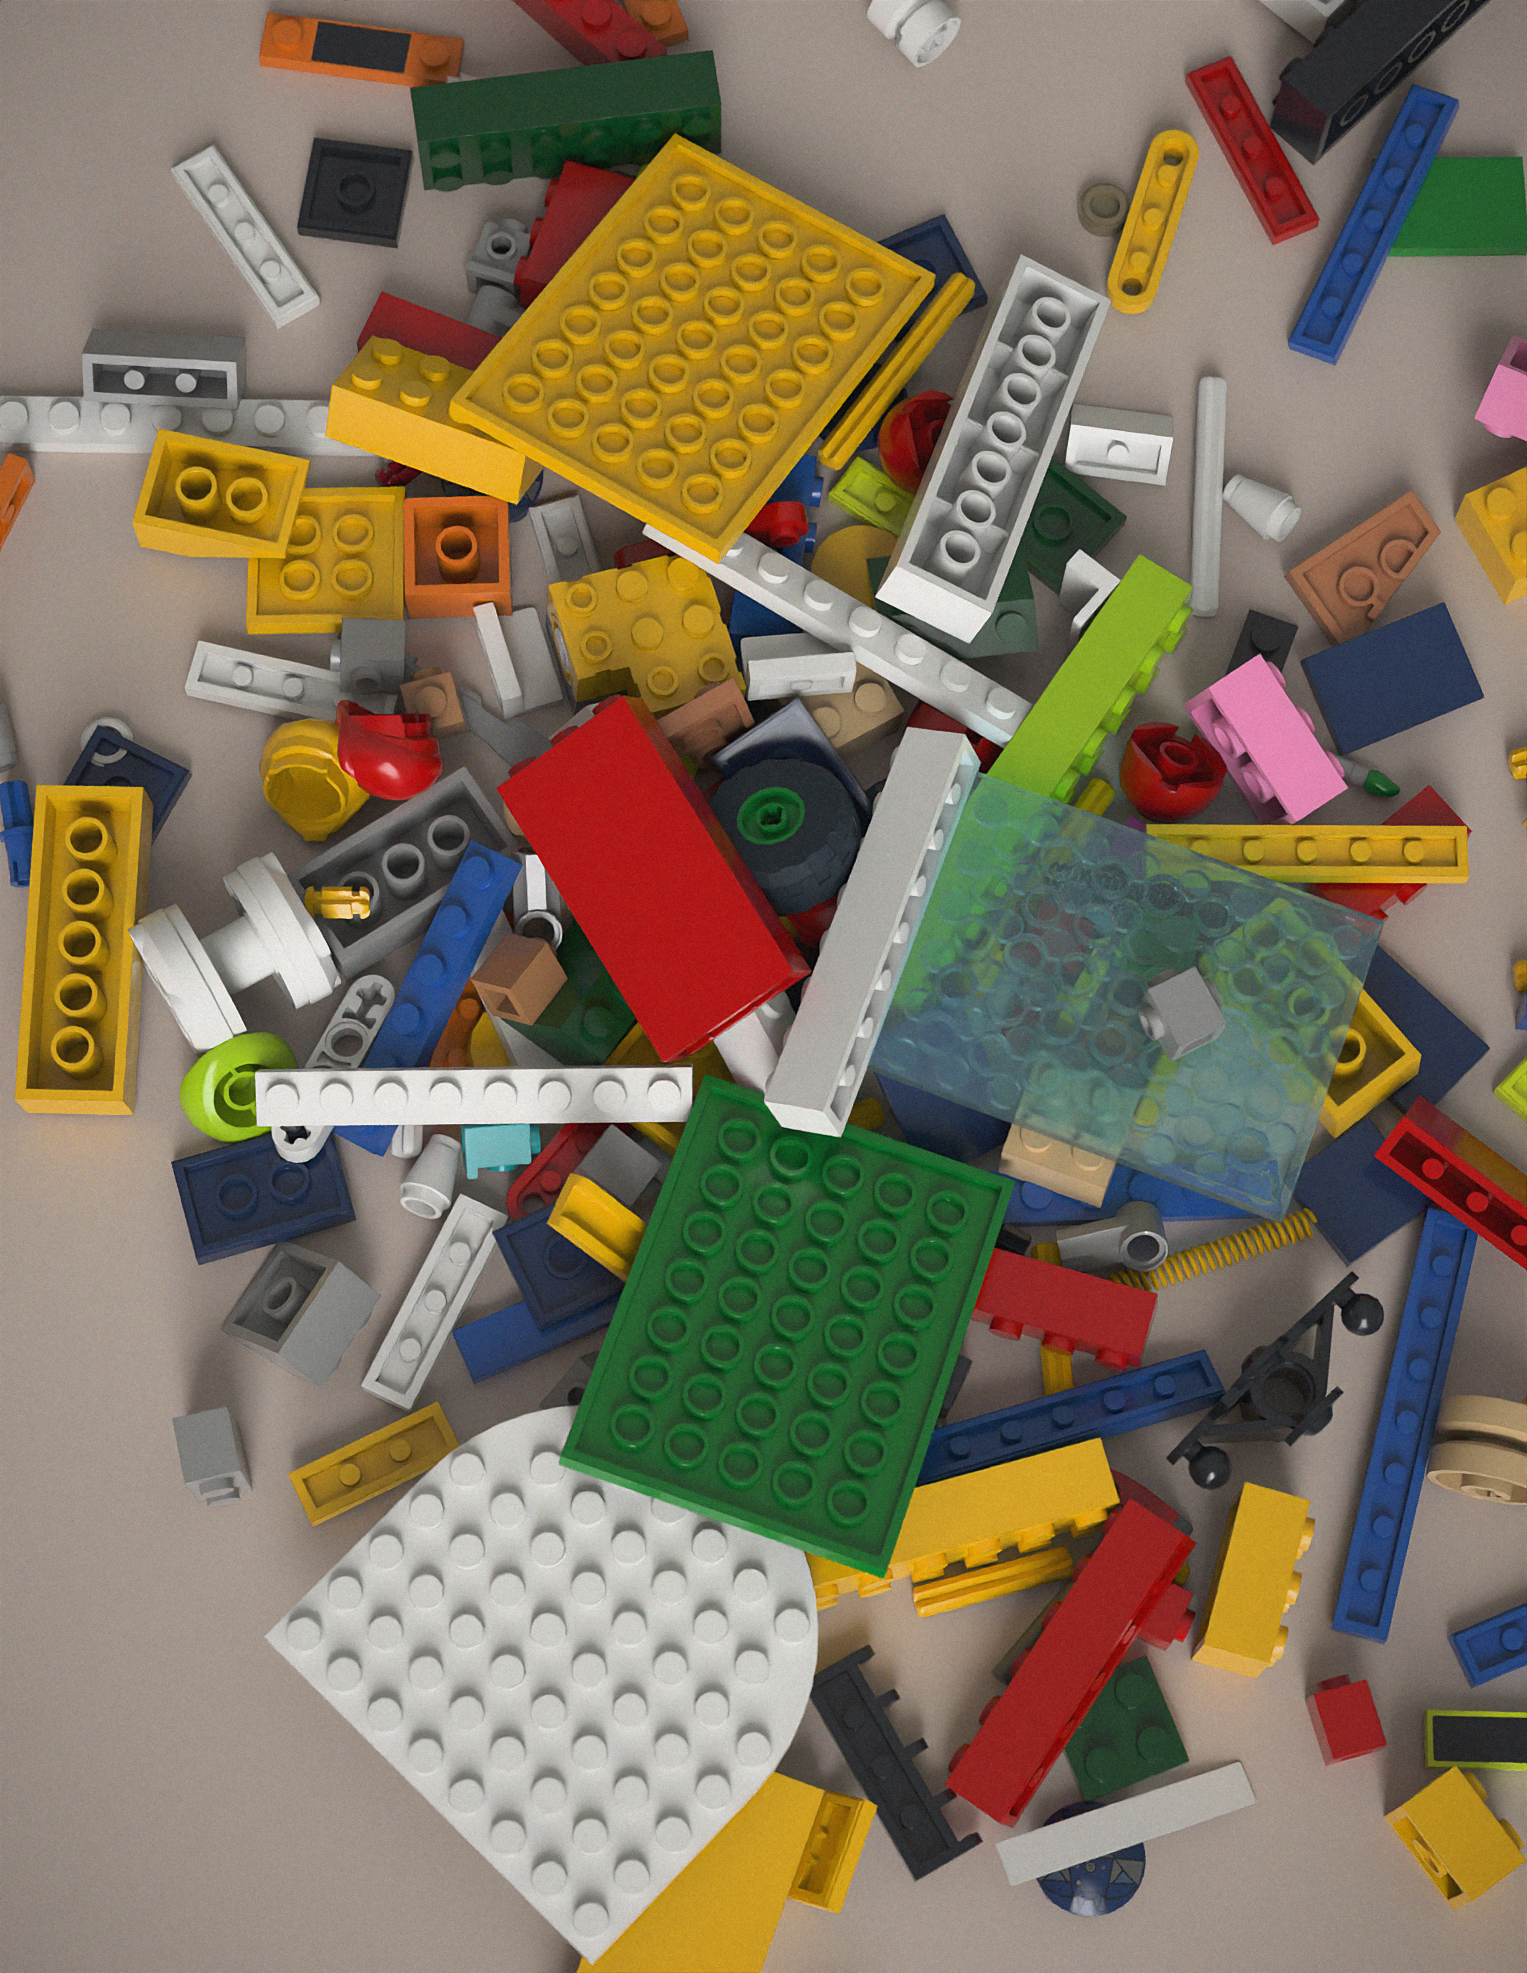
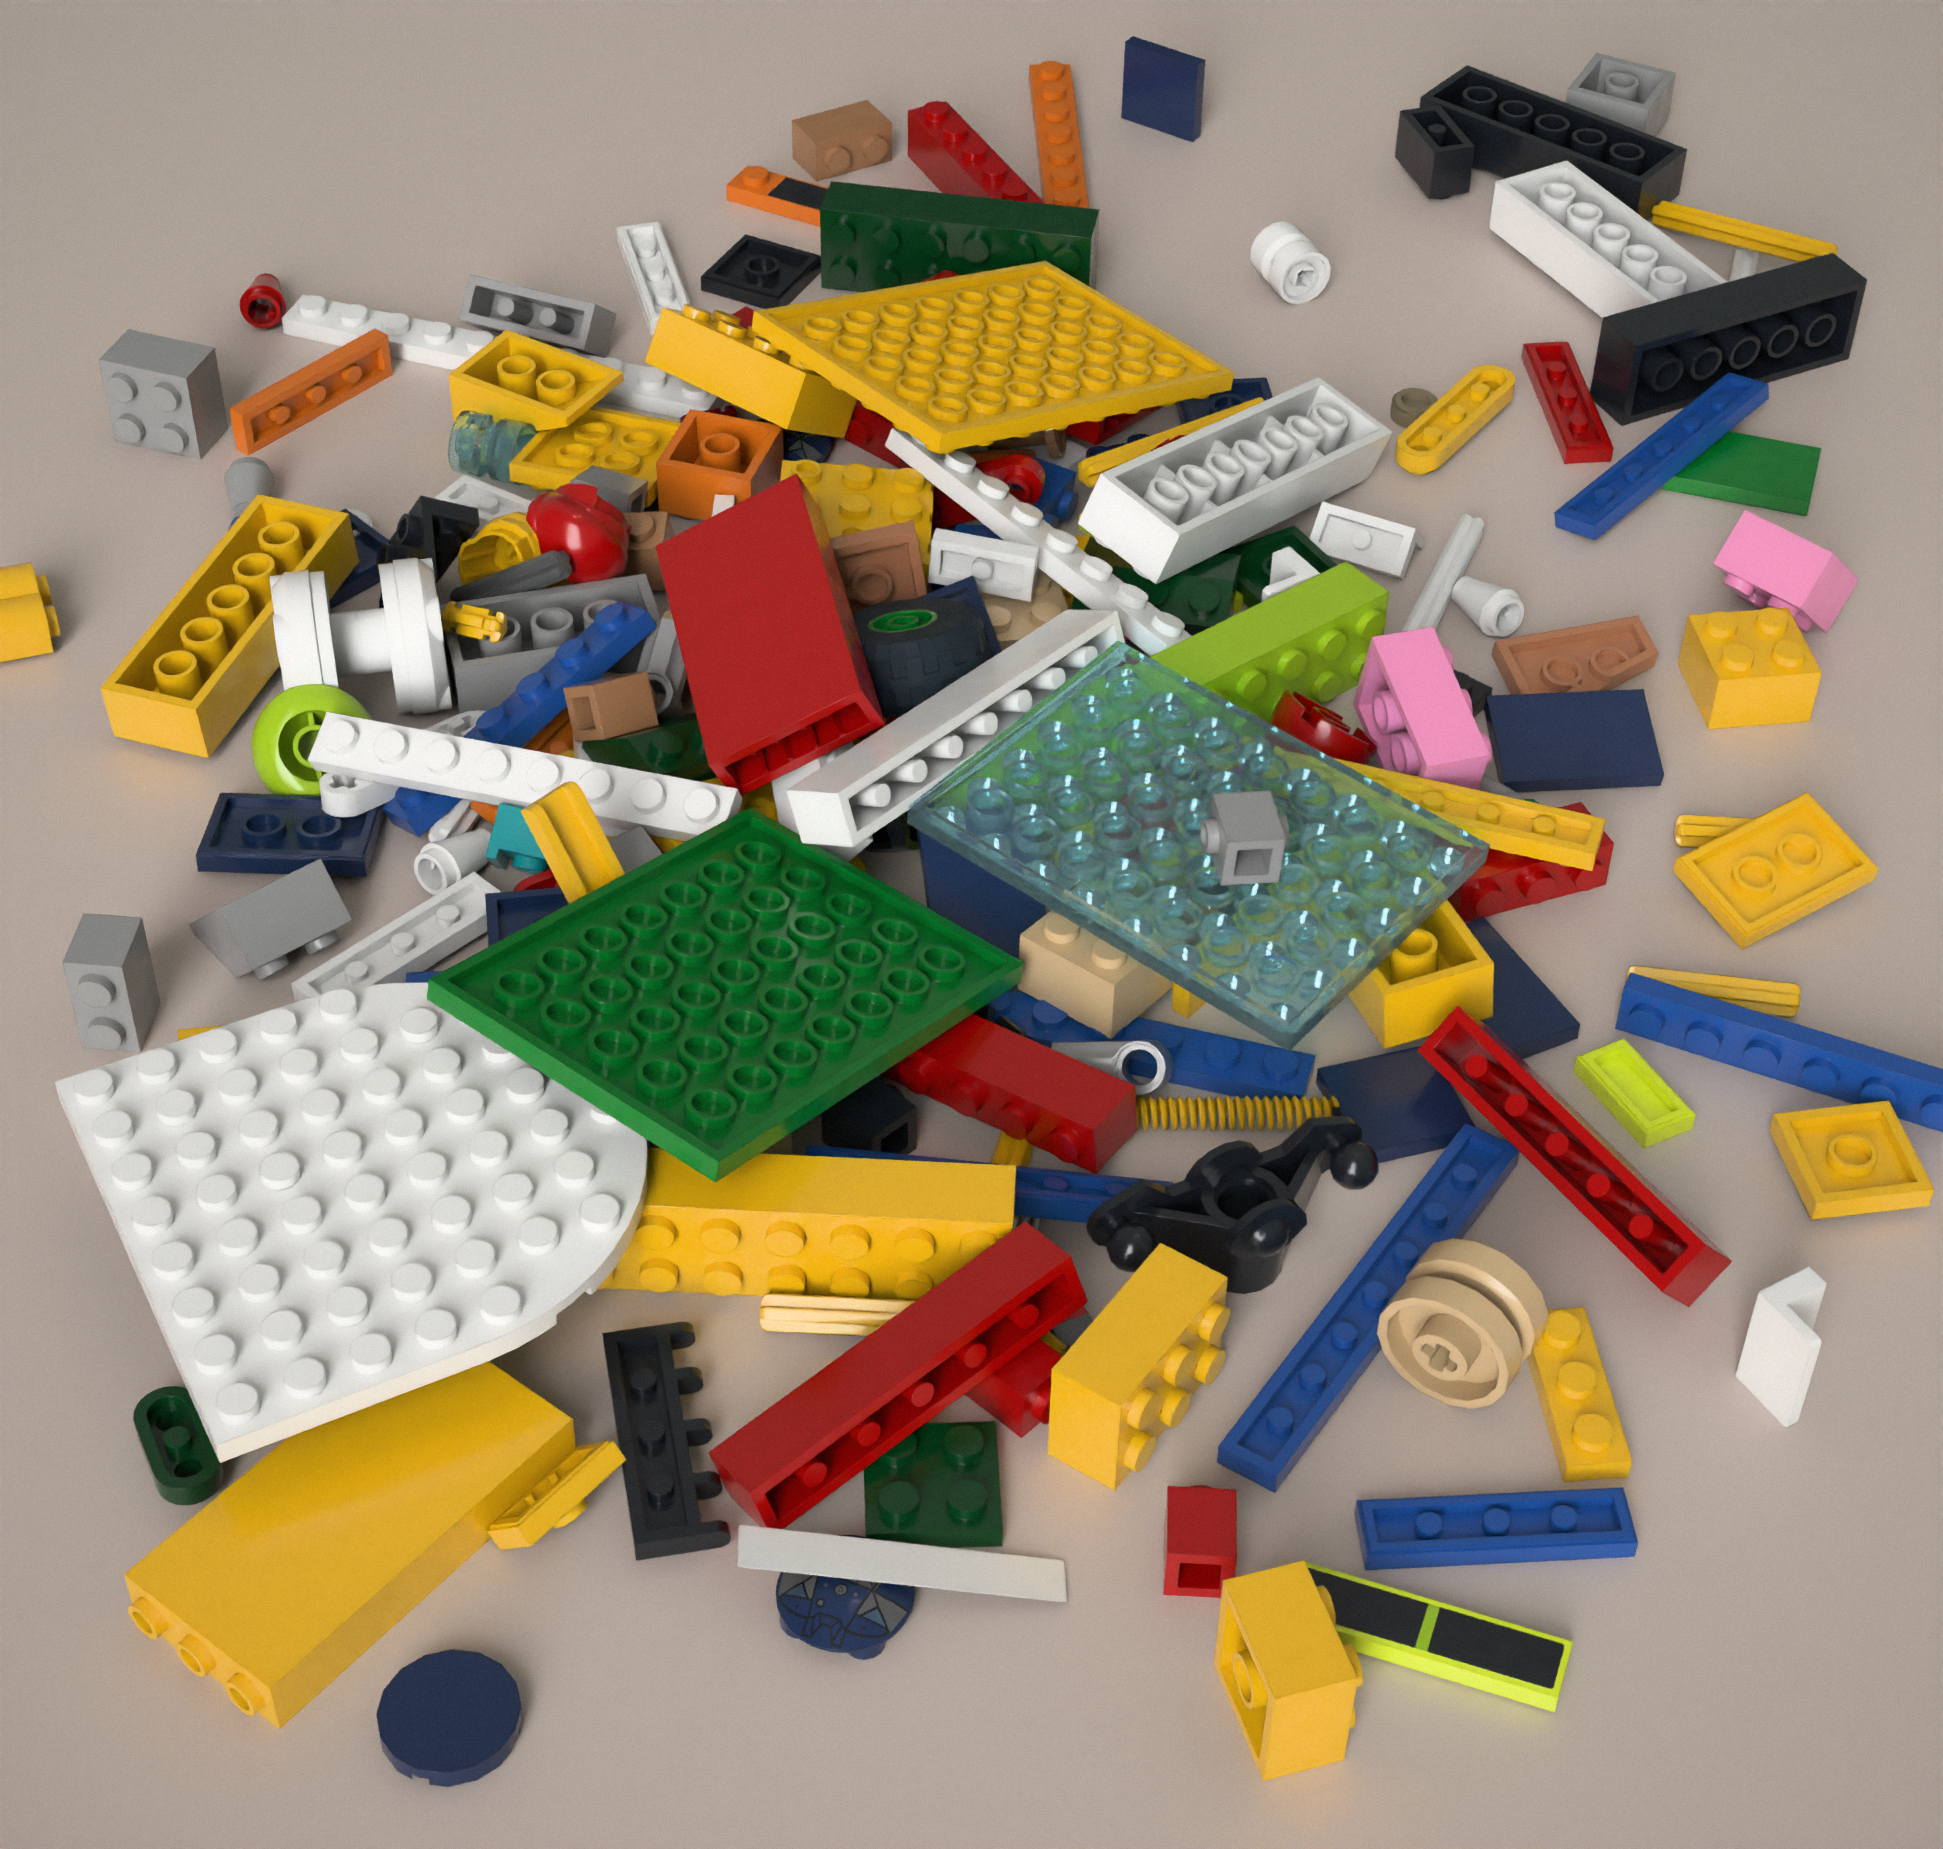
camera: 20 degrees right, 30 degrees down
(208, 591) = (486, 447): none -> clear light blue wheel
(220, 812) = (430, 531): none -> black bracket
(338, 819) = (522, 577): none -> dark grey axle
(504, 1910) = (179, 1450): none -> dark green plate

